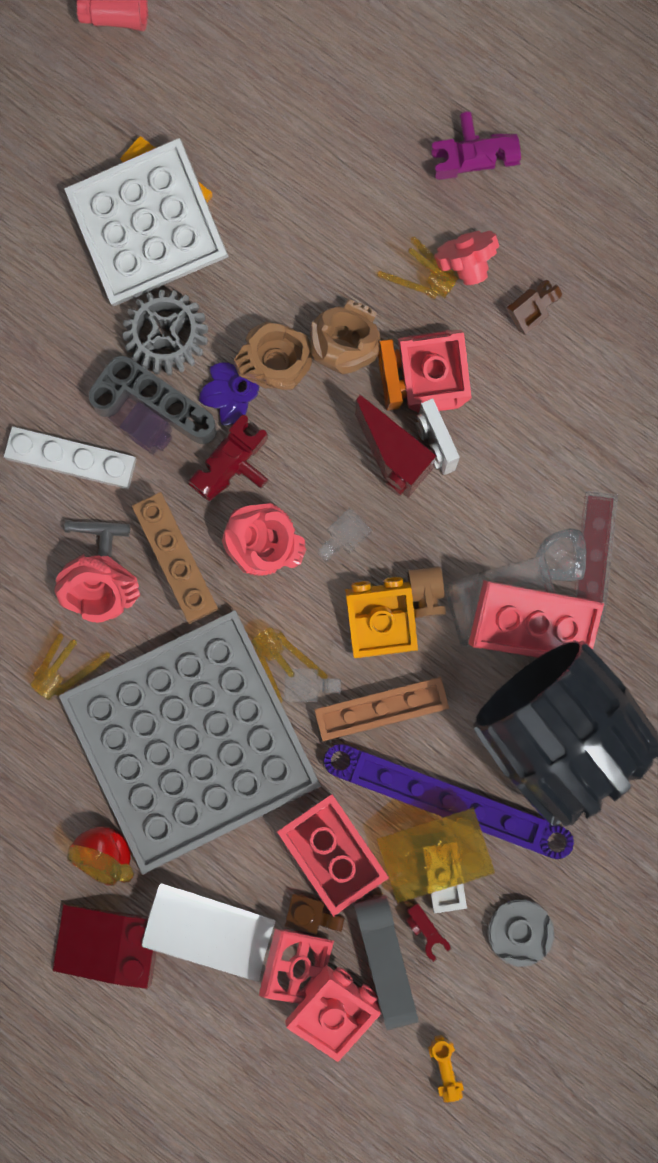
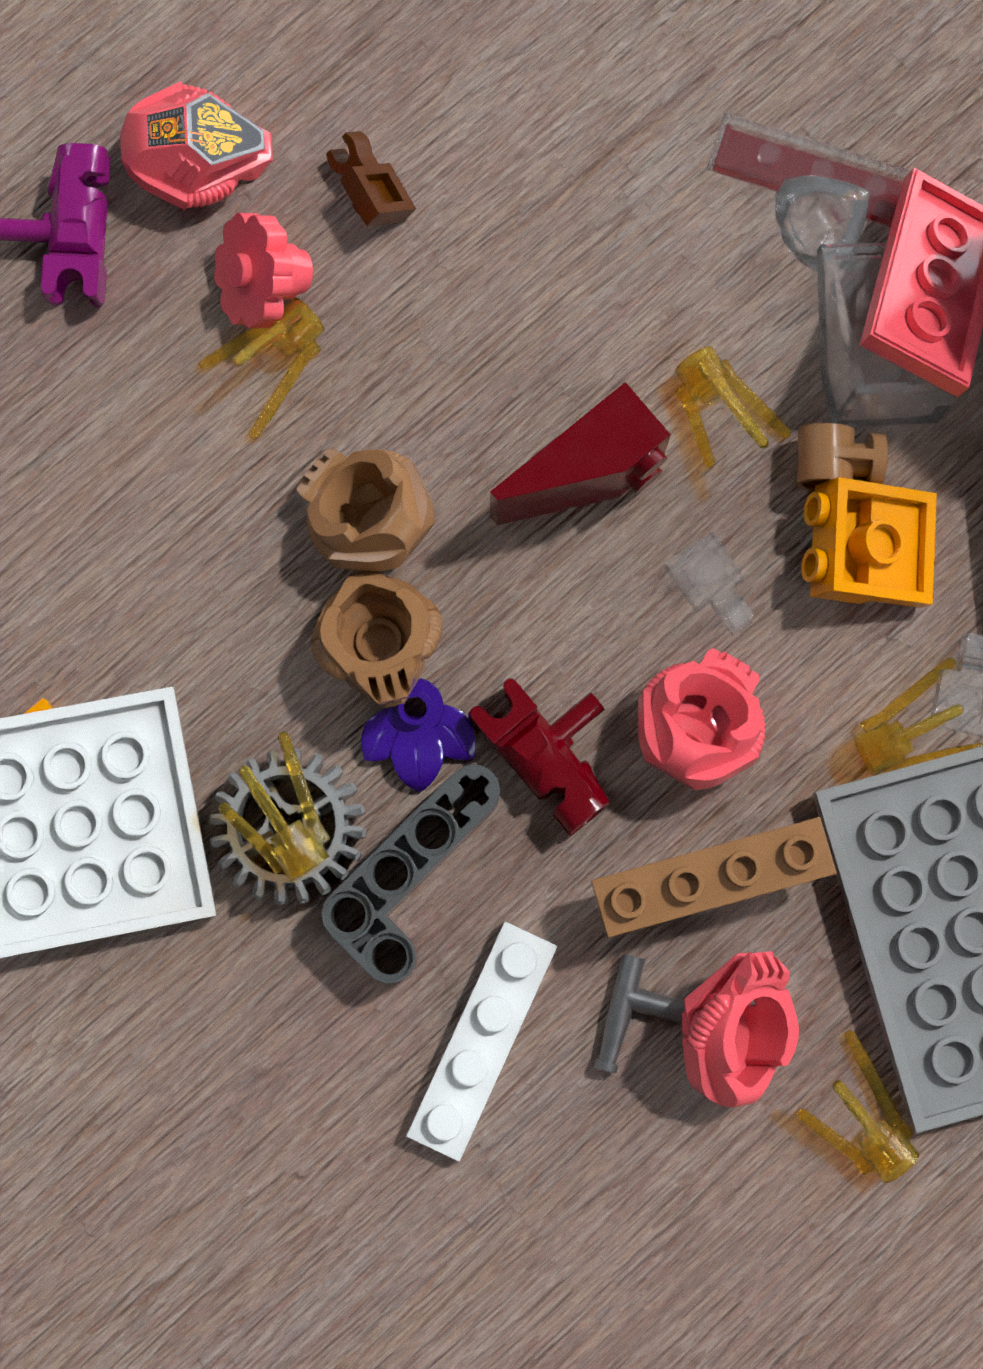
camera: 80 degrees left, 0 degrees up
(146, 429) = (461, 889): clear purple brick -> none
(149, 331) = (295, 847): none -> clear yellow plant
(393, 388) = (466, 447): orange plate -> none
(432, 427) = (576, 382): white plate -> none
(435, 368) = (449, 367): coral slope -> none
(459, 511) = (711, 379): none -> clear yellow plant
(534, 205) = (191, 146): none -> coral helmet

